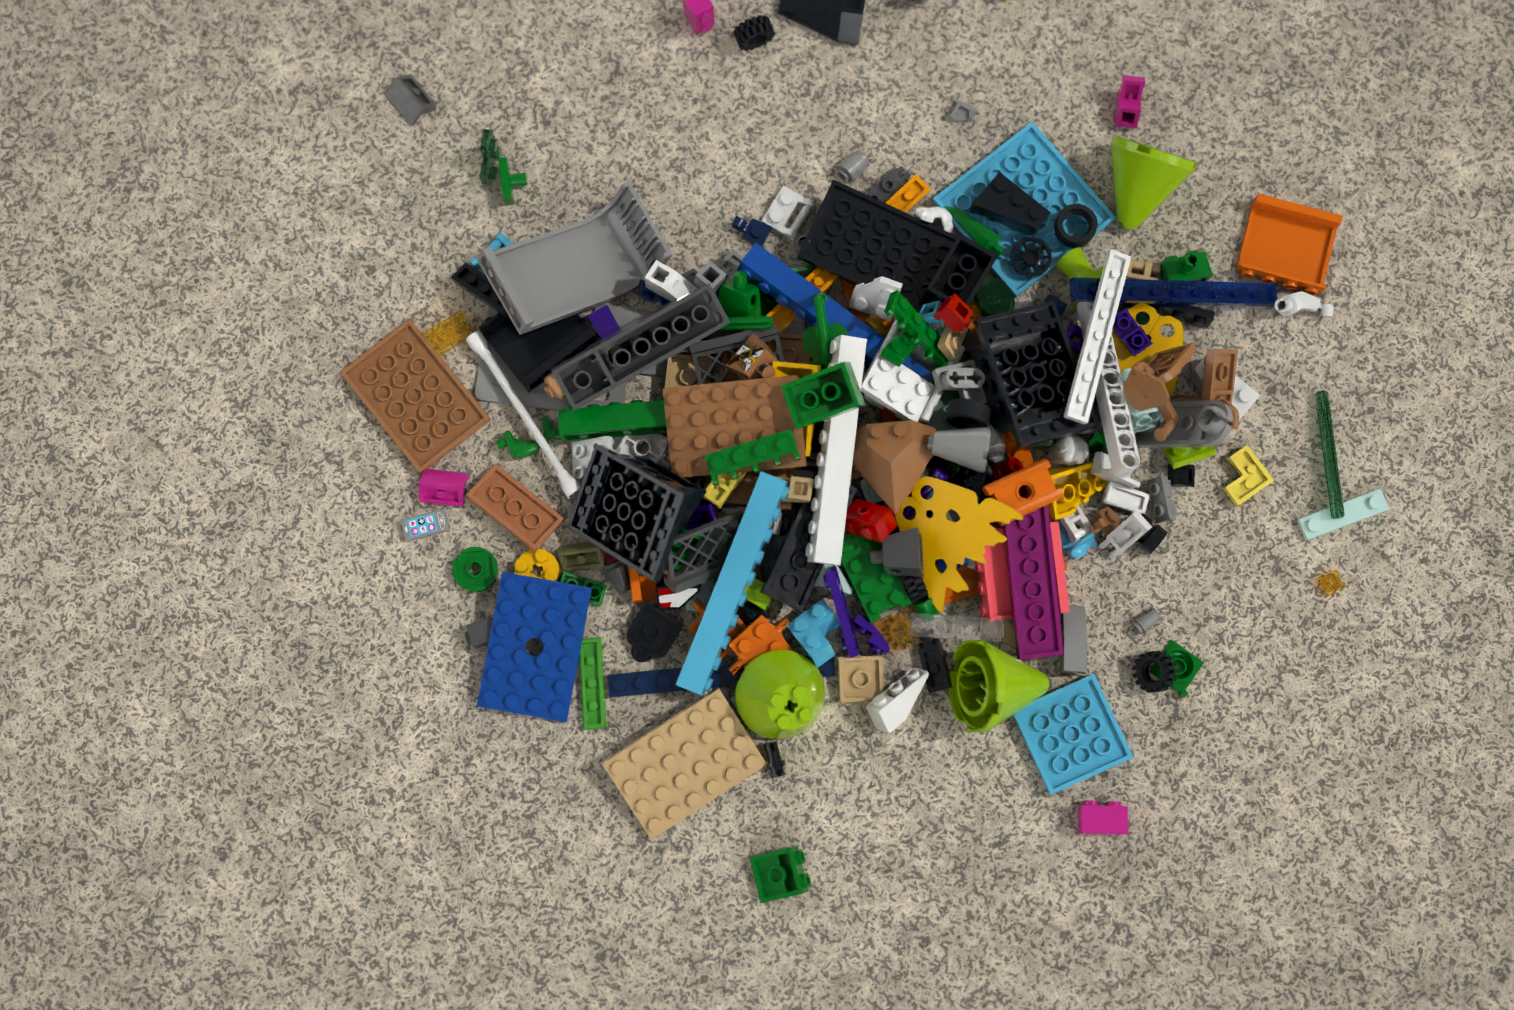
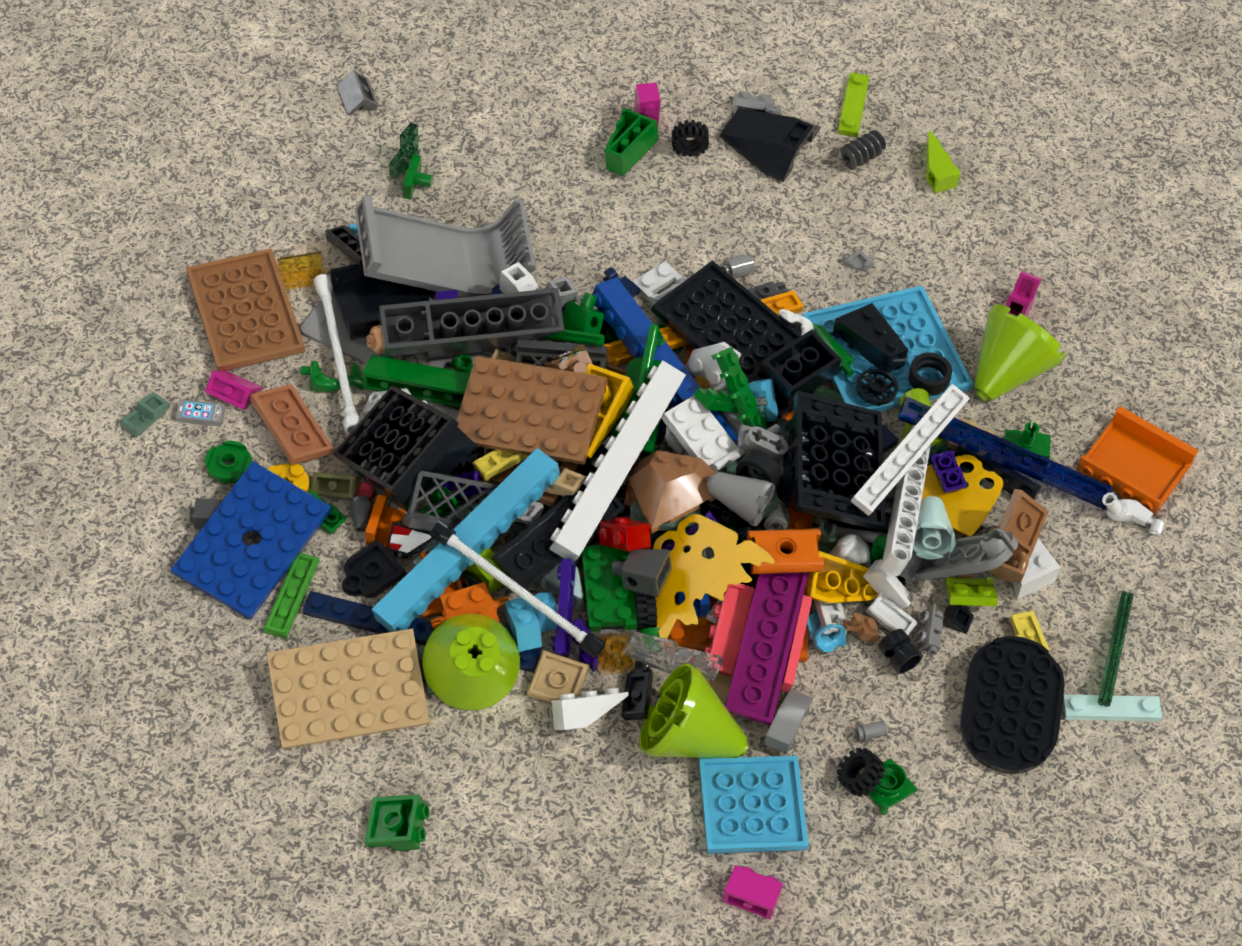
camera: 15 degrees right, 25 degrees down
(376, 547) = (147, 412): none -> sand green slope
(644, 387) = (460, 361): none -> green plate
(698, 56) = (630, 141): none -> green wedge
(751, 454) = (535, 432): green hinge -> none
(774, 759) = (438, 723): black pin -> none
(823, 395) = (624, 397): green slope -> none
(878, 641) = (447, 536): none -> white hose
(951, 342) = (772, 412): tan plate -> none
(954, 313) = (779, 387): red brick -> none
(1126, 534) = (877, 638): white hinge -> none
(1146, 384) = (942, 500): medium nougat plate -> none
(1260, 549) = (1012, 705): none -> black plate
(1325, 580) = (1075, 768): clear yellow plate -> none

